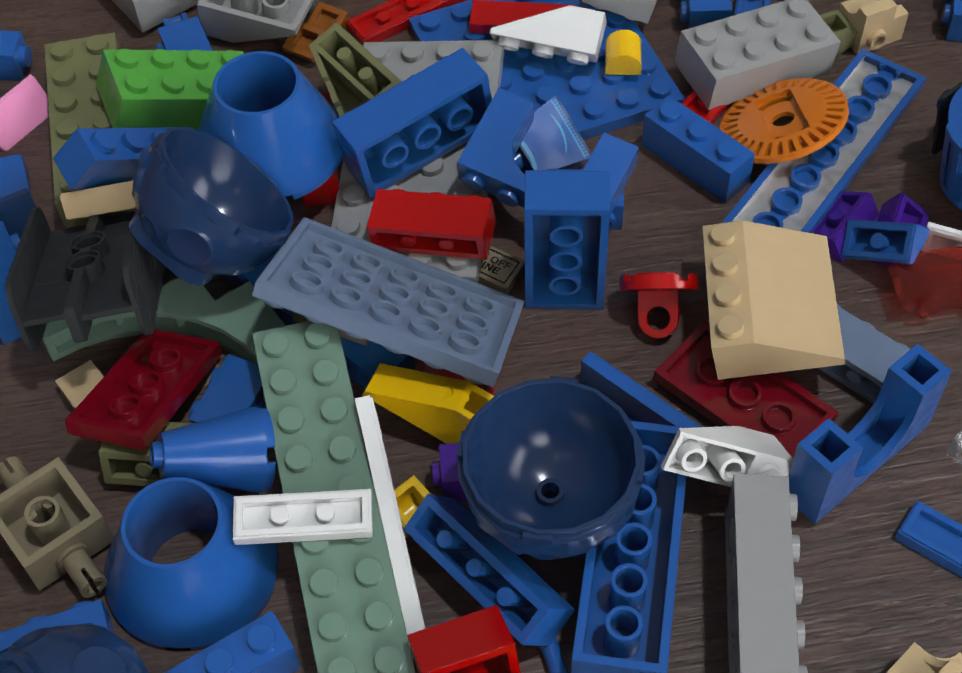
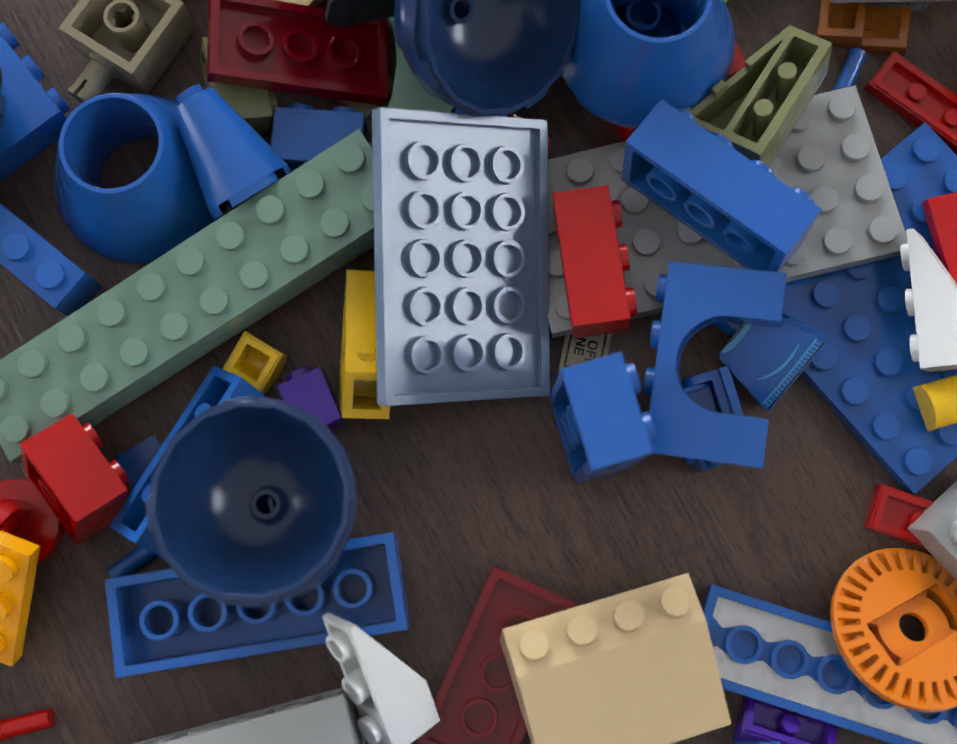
camera: 70 degrees right, 25 degrees up
(302, 516) = (162, 266): white tile -> none
(390, 515) = (208, 352): white tile -> none
(632, 397) = (442, 576): blue tile -> none
(655, 291) = (602, 541): red tile -> none
(697, 149) = (833, 531): blue brick -> none

